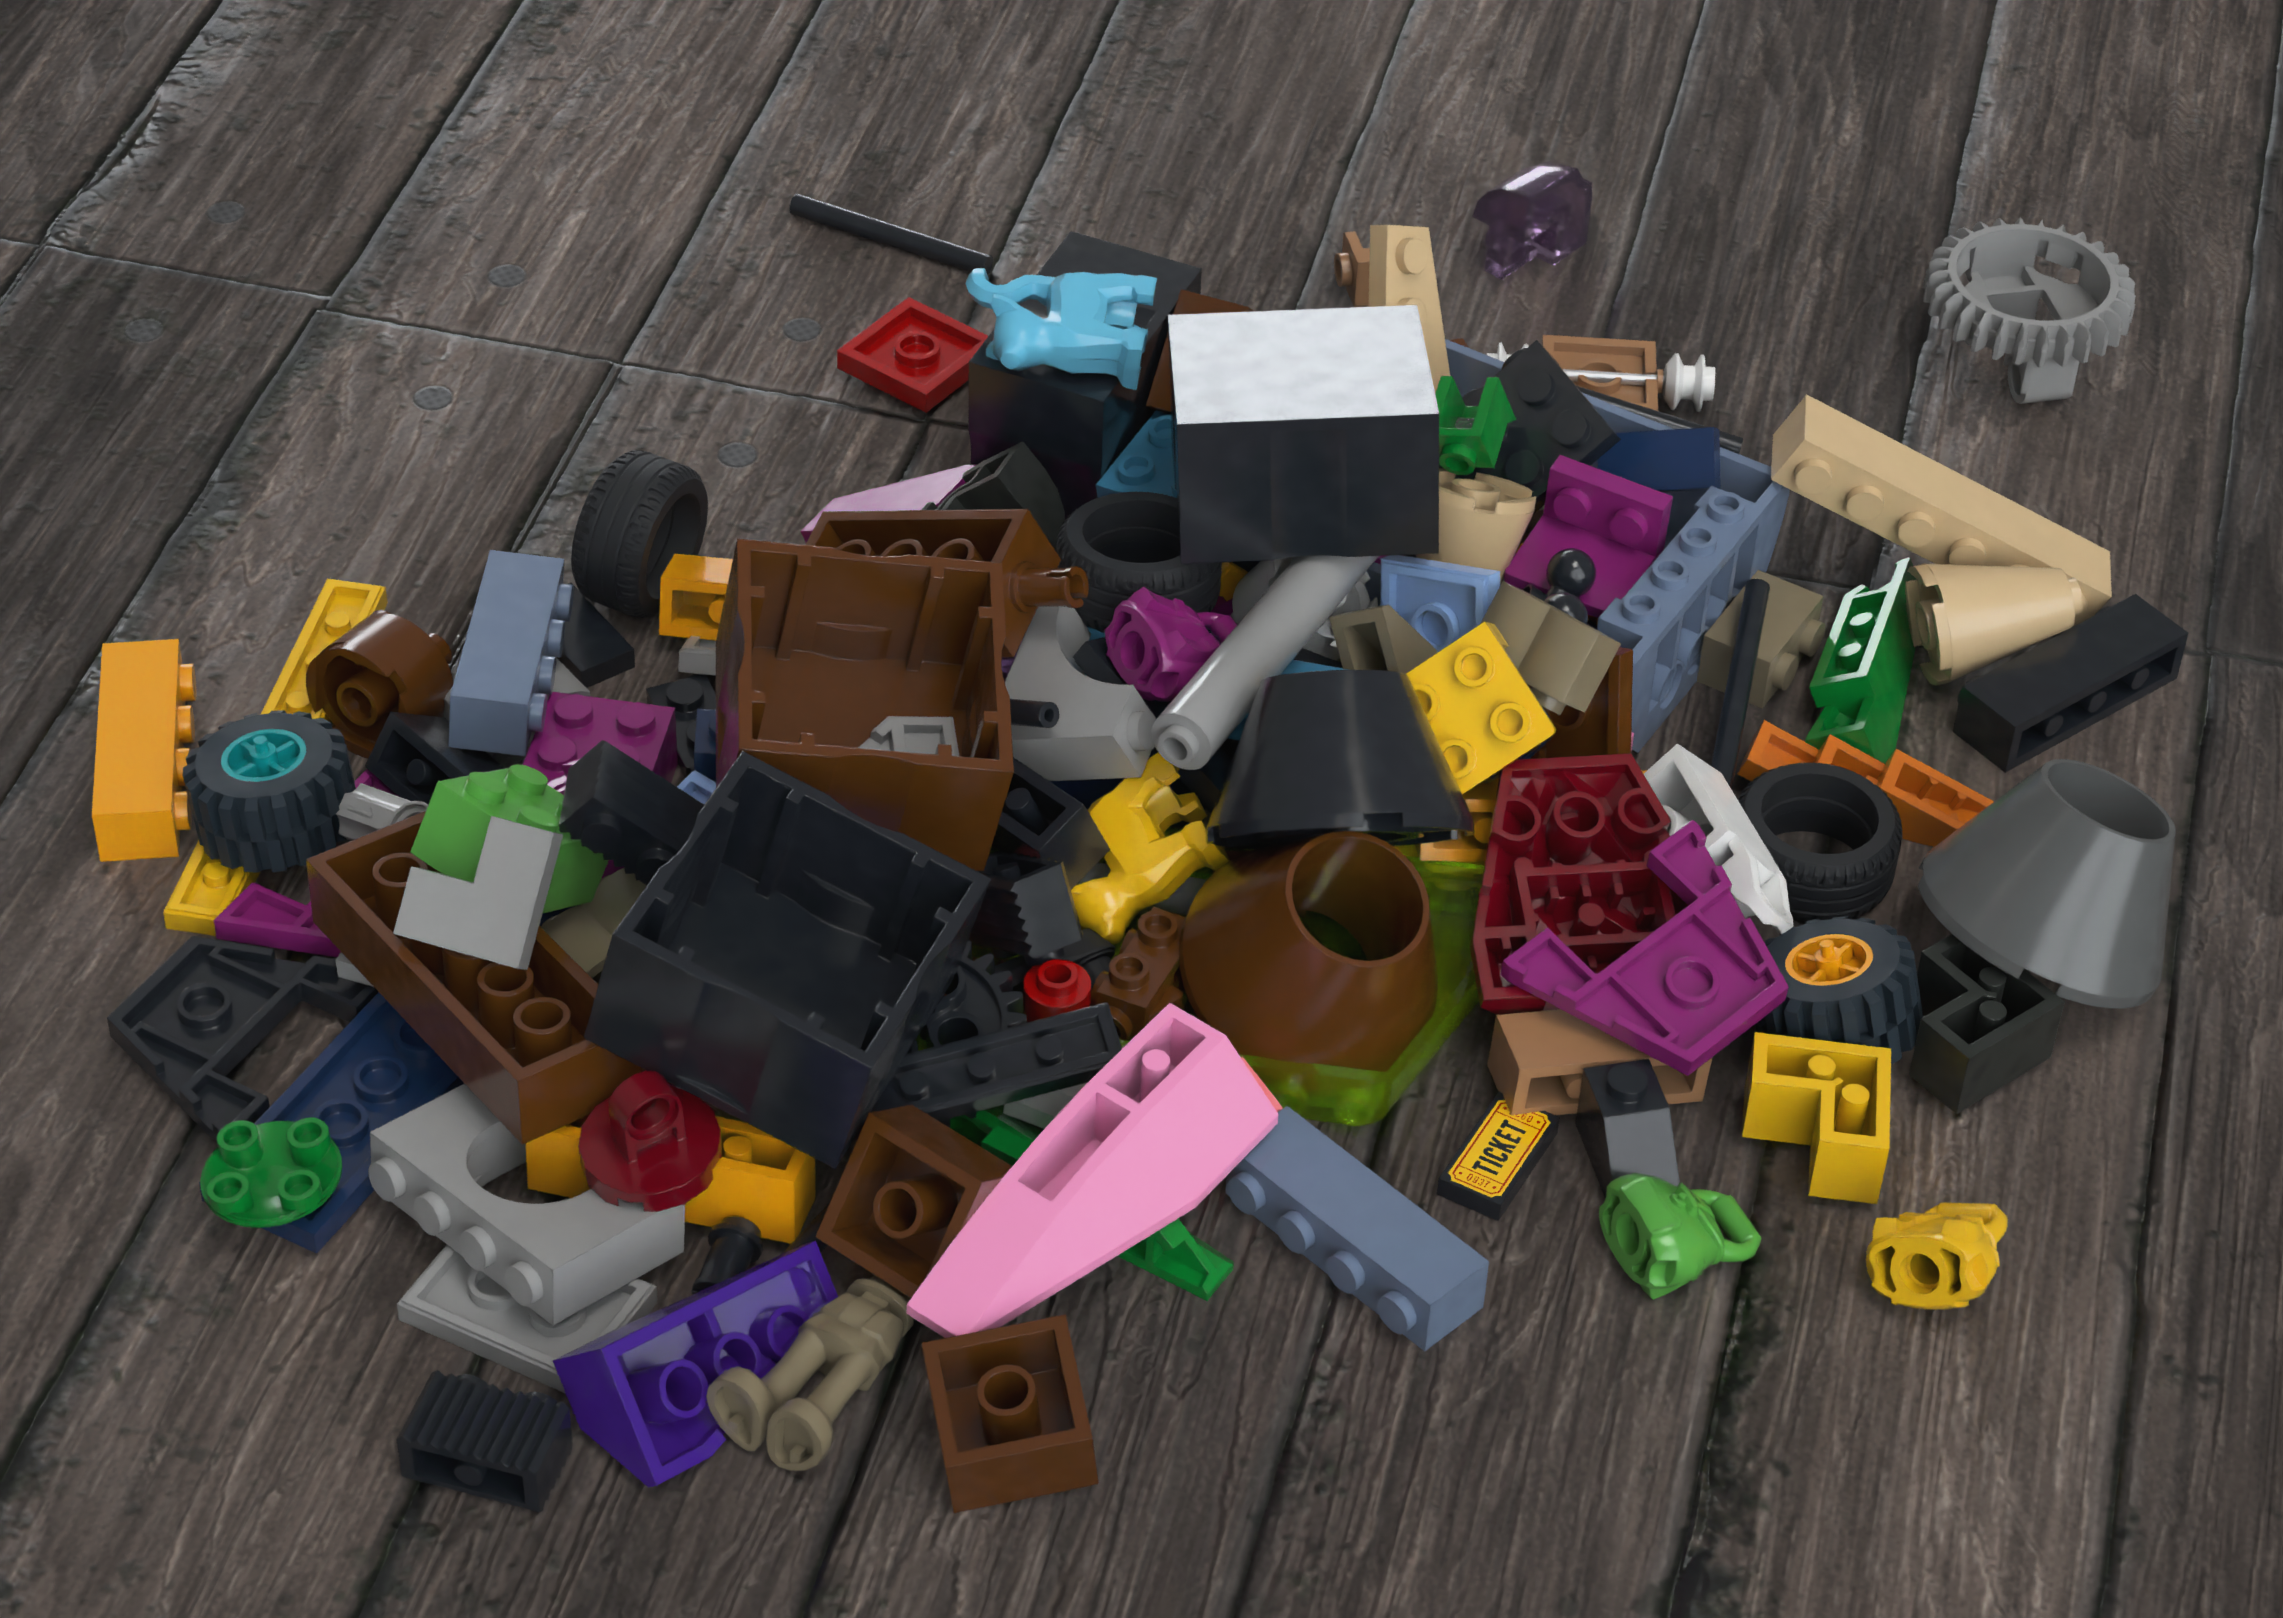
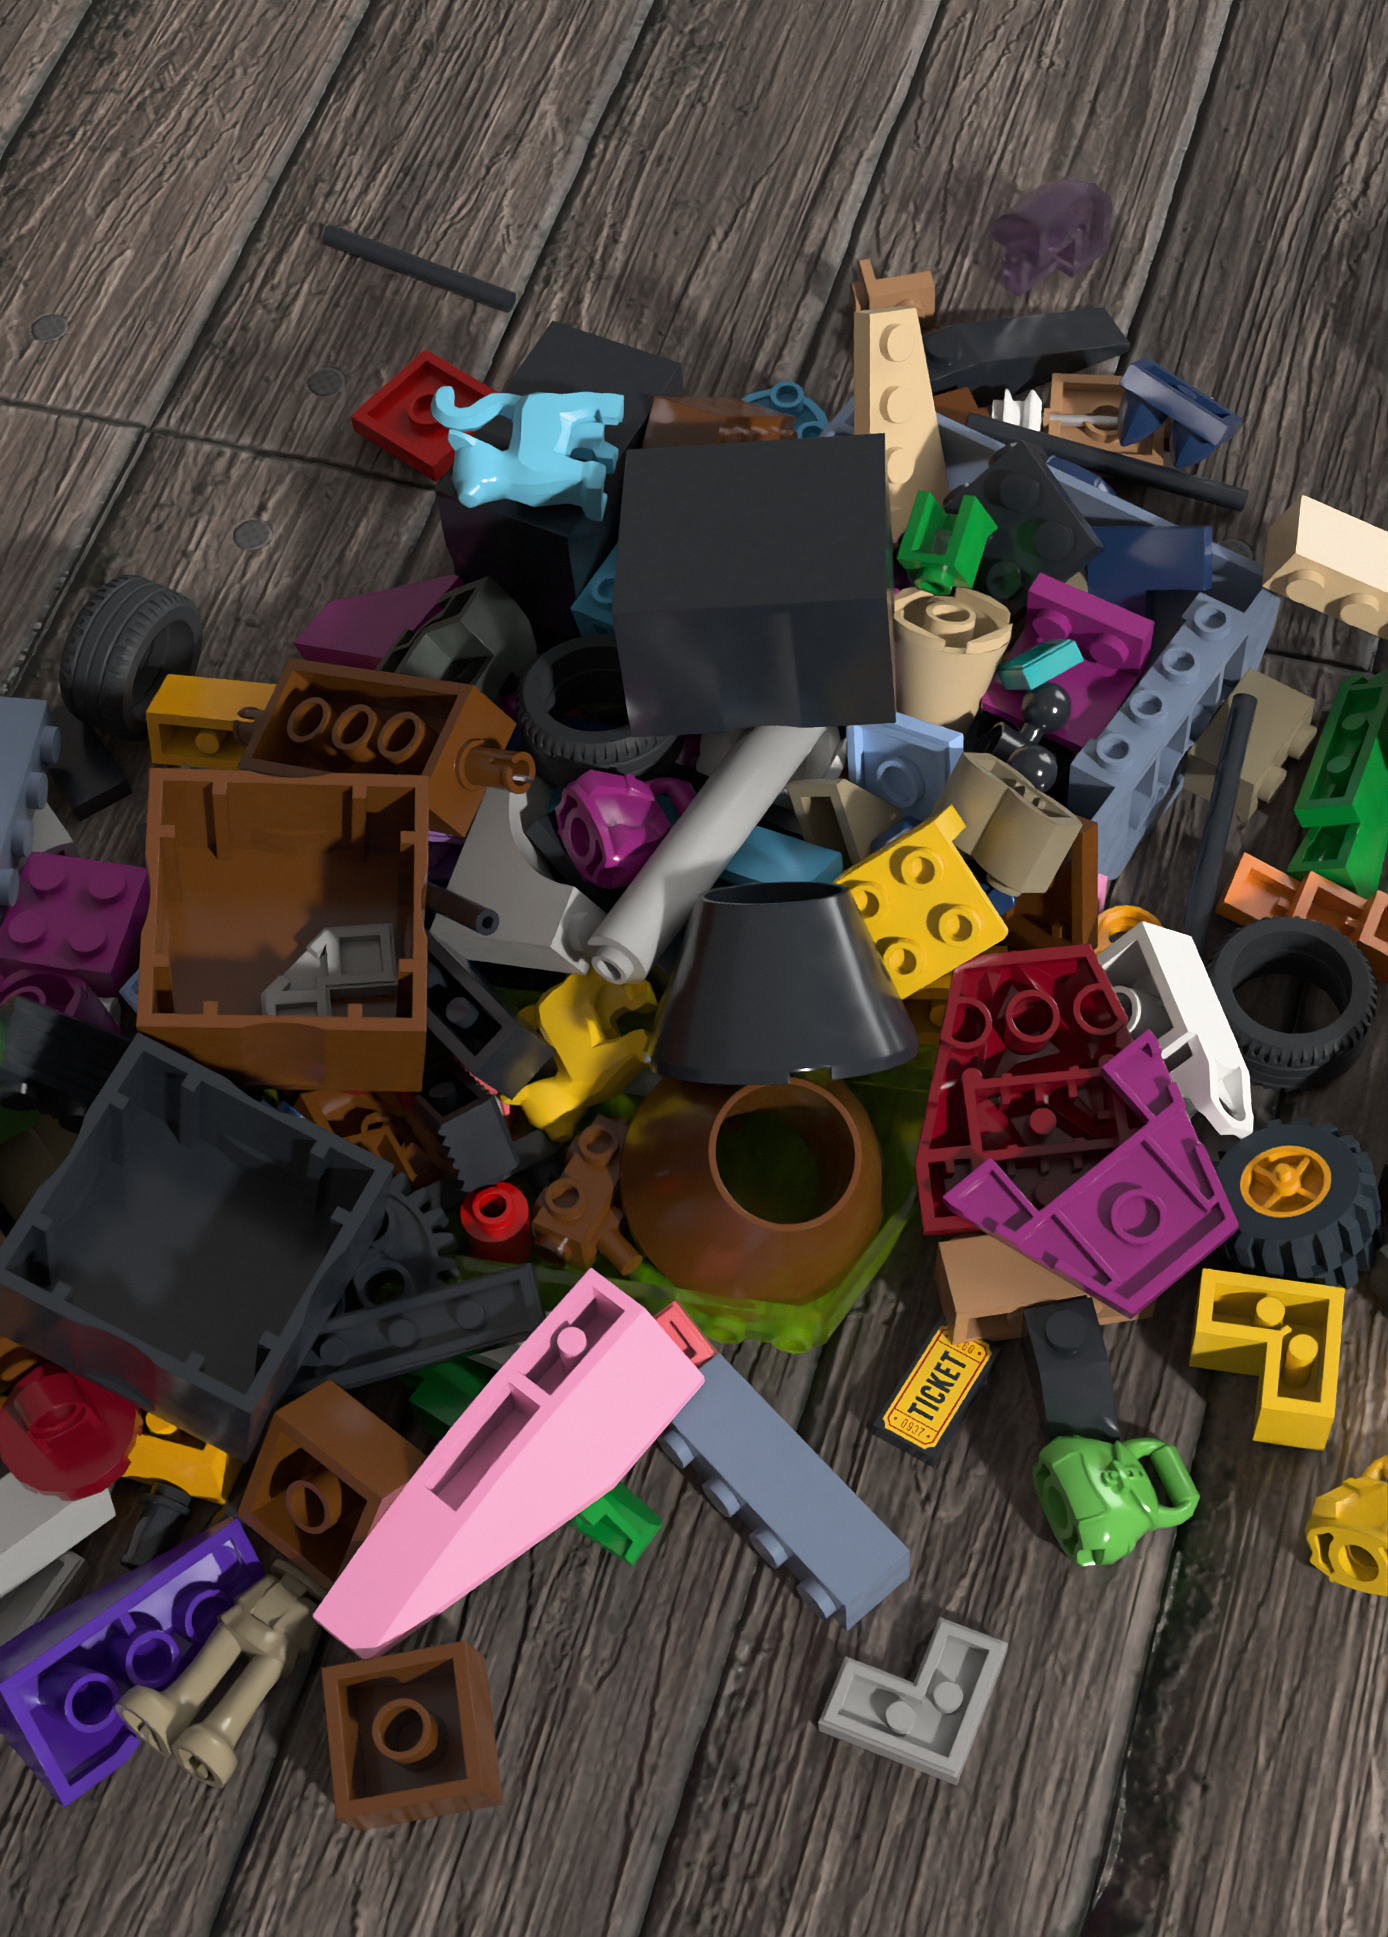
camera: 10 degrees right, 15 degrees up
(1505, 1418) = (923, 1721): none -> light grey tile
(1518, 314) = (1018, 351): none -> black wedge
(1562, 535) = (1039, 664): none -> teal tile
(1645, 349) = (1155, 395): none -> dark blue tile

